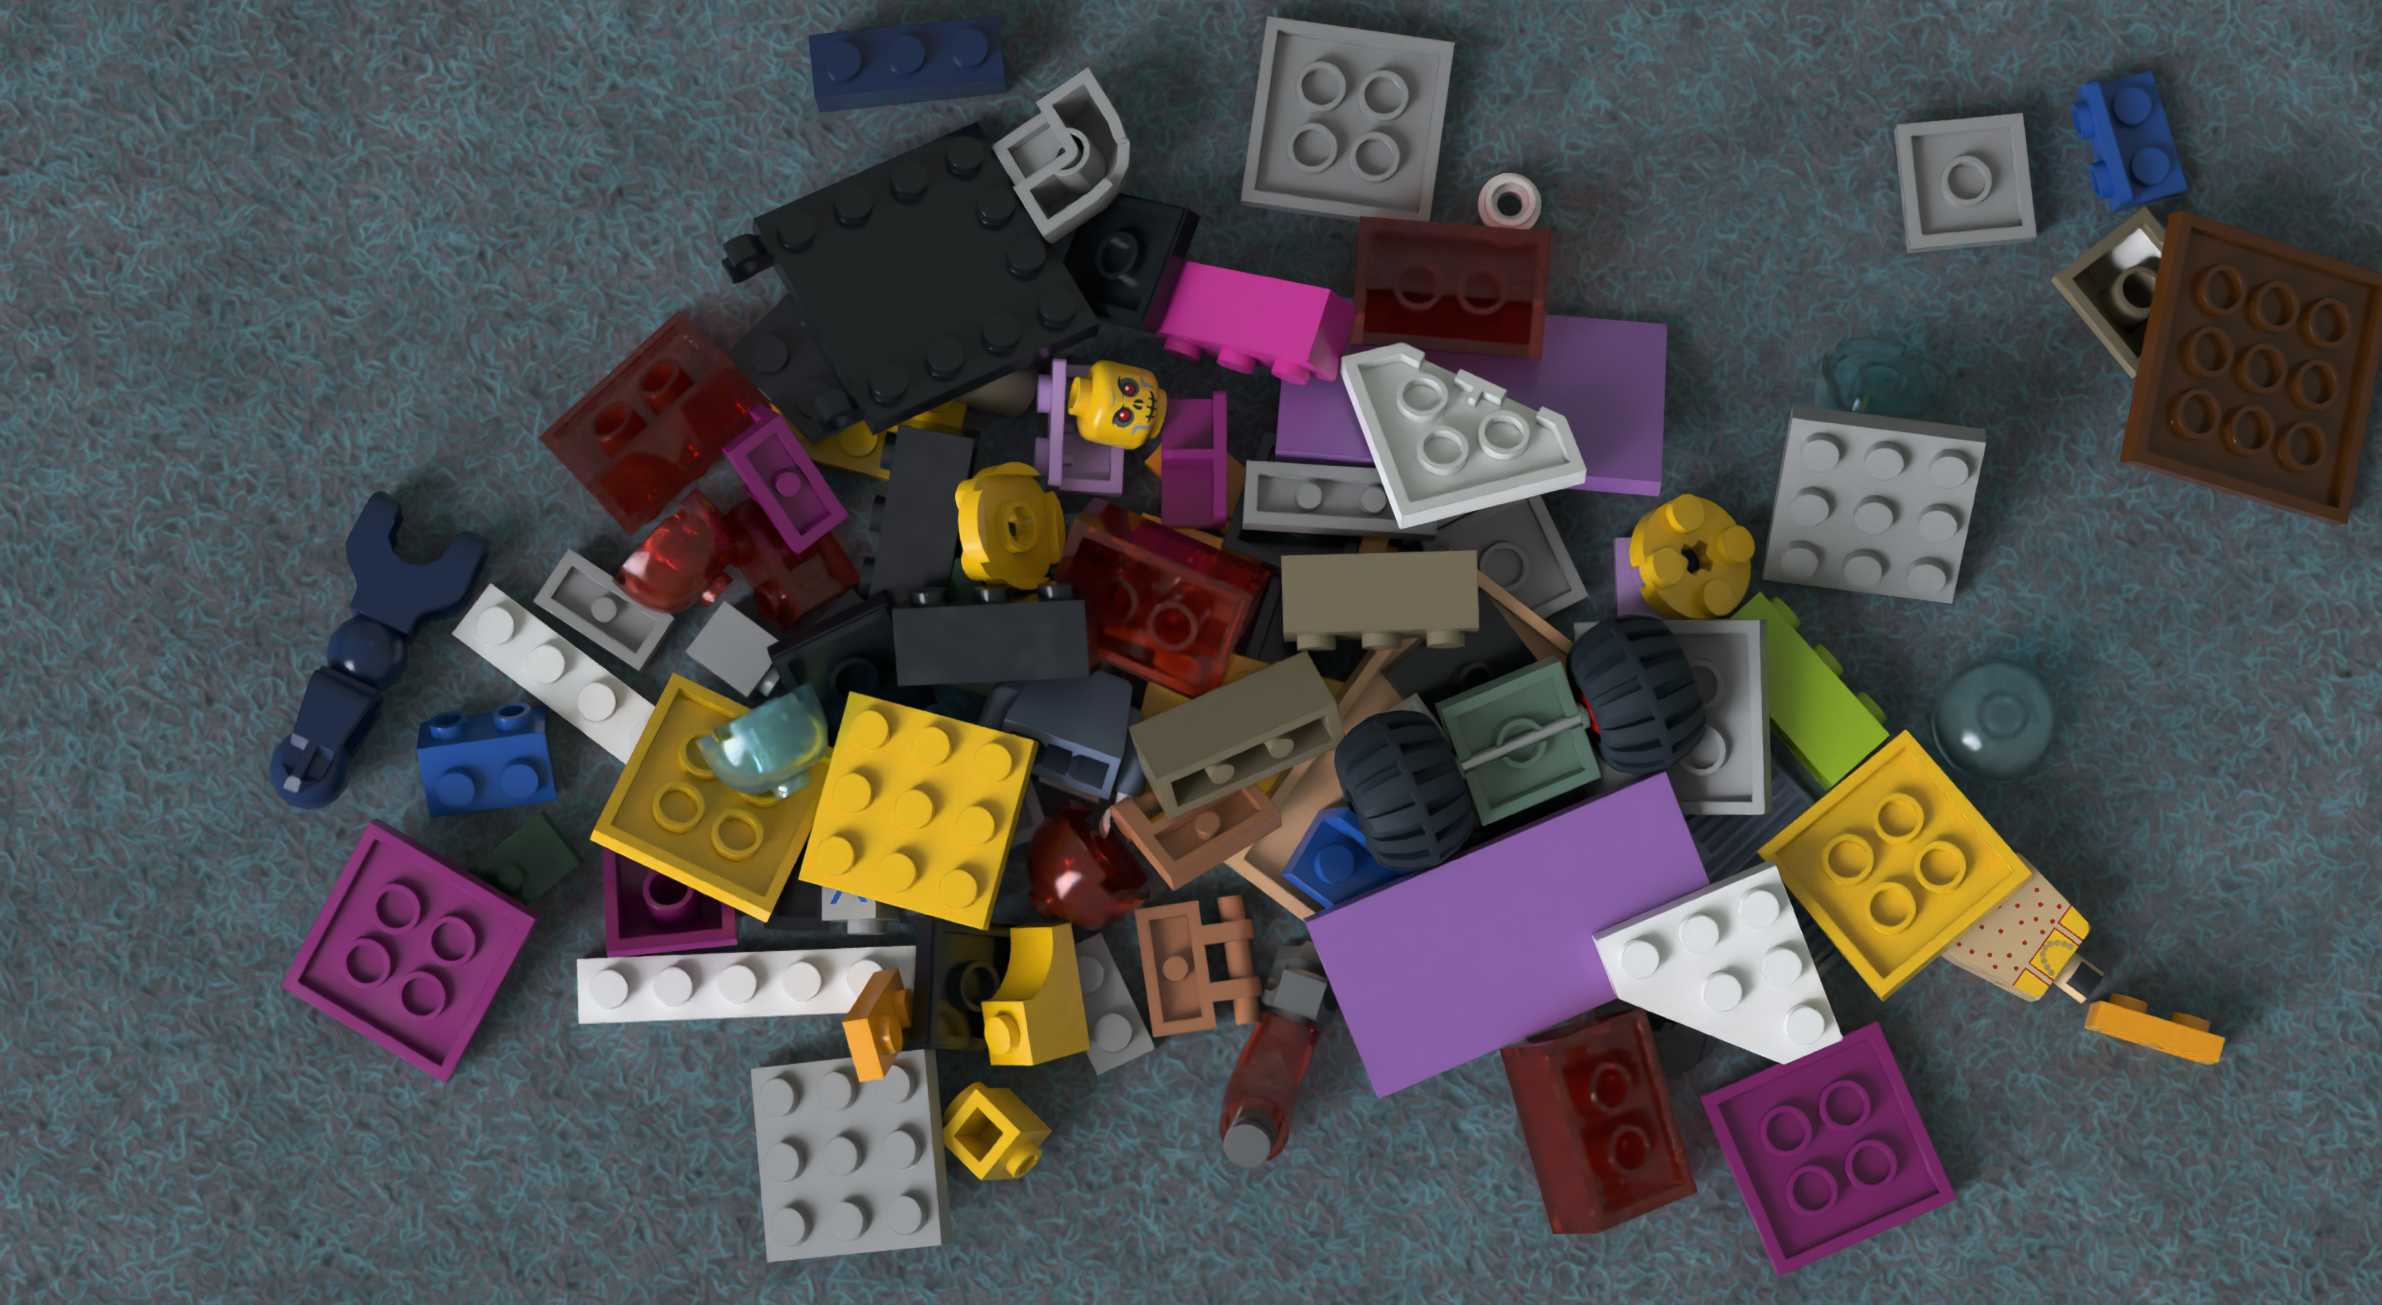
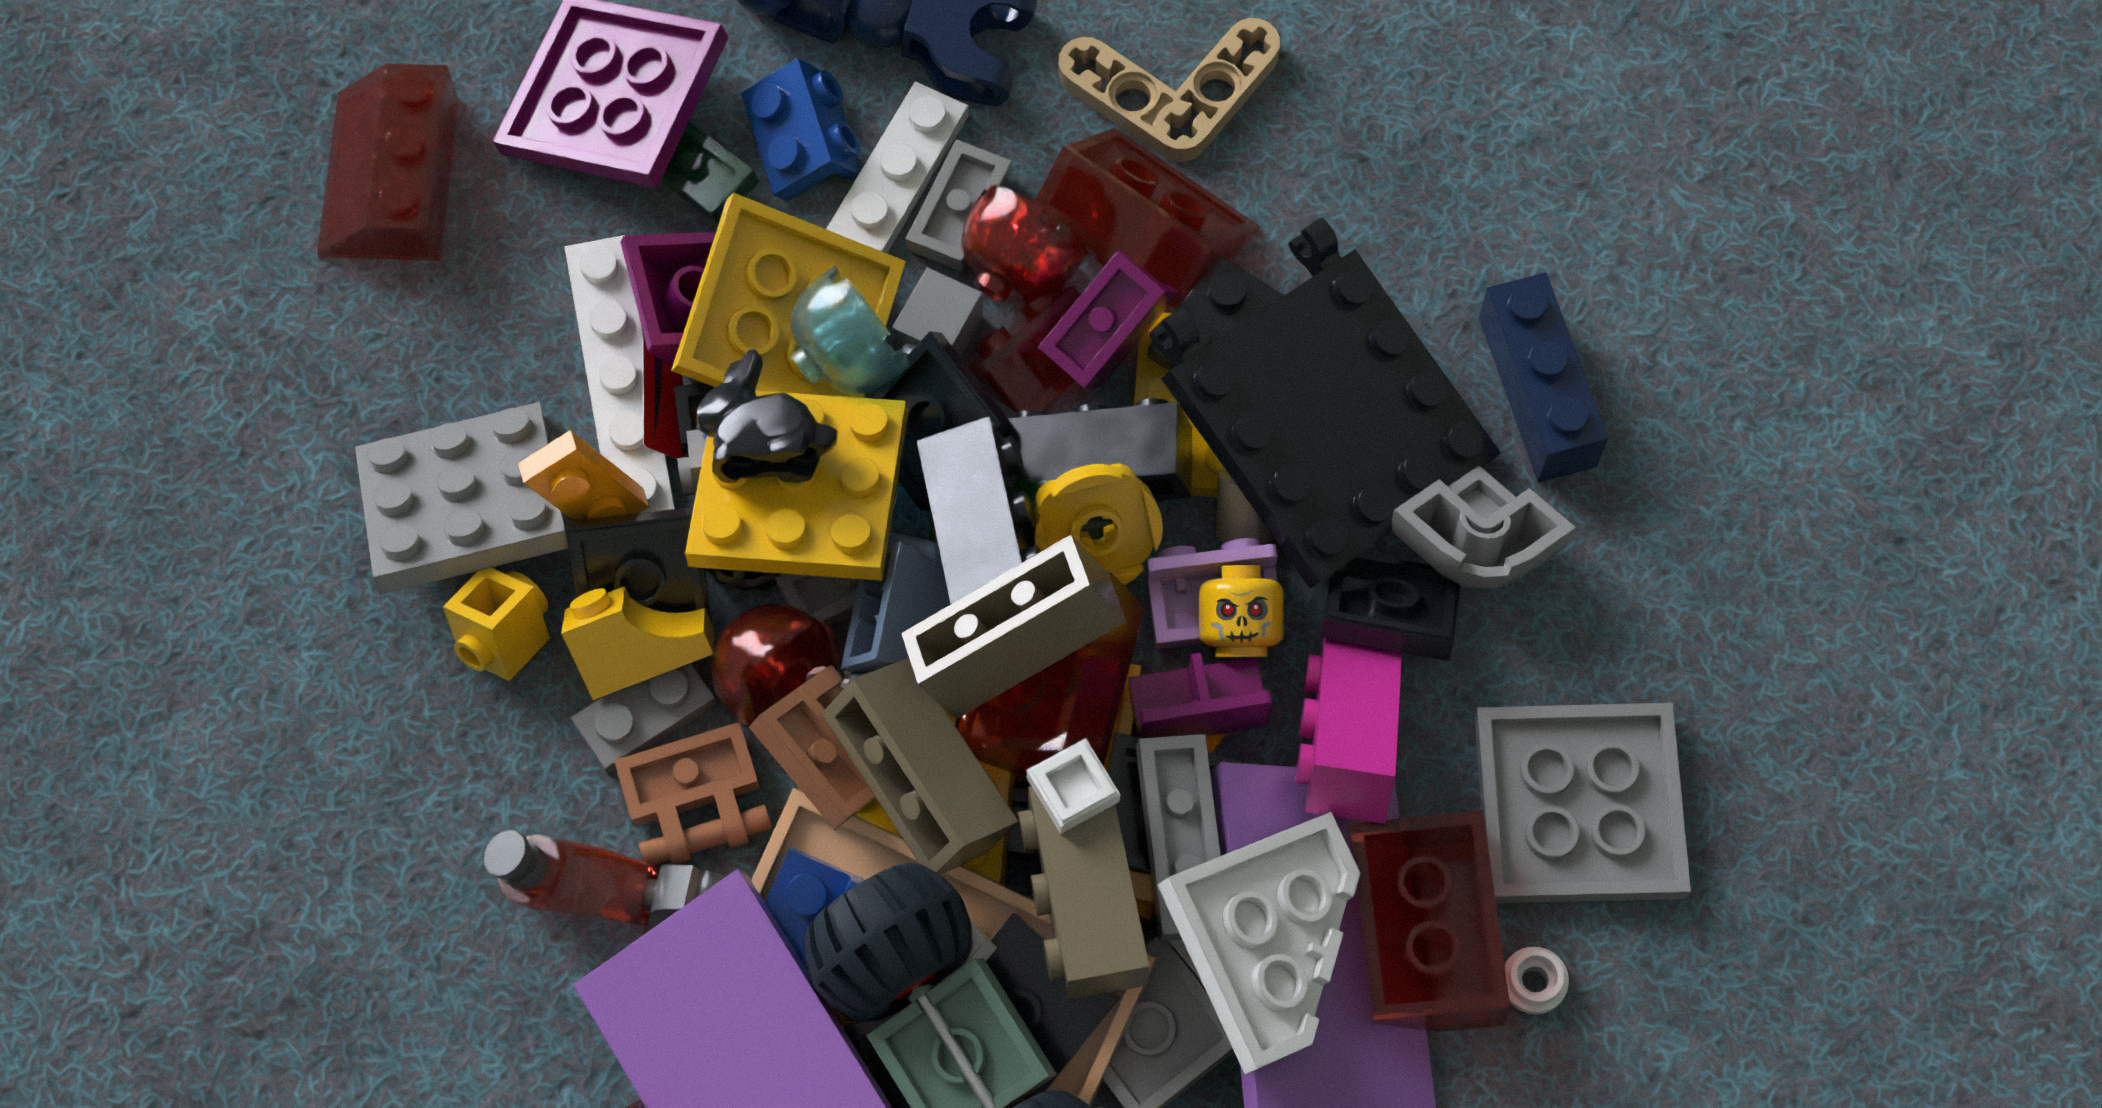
camera: 80 degrees right, 15 degrees down
(450, 1199) = (390, 165): none -> clear red slope
(523, 381) = (1169, 106): none -> tan beam
(780, 945) = (659, 406): none -> red sticker
(876, 836) = (763, 432): none -> black animal
(1125, 620) = (1013, 627): none -> dark tan brick
(1293, 590) = (1073, 786): none -> white tile

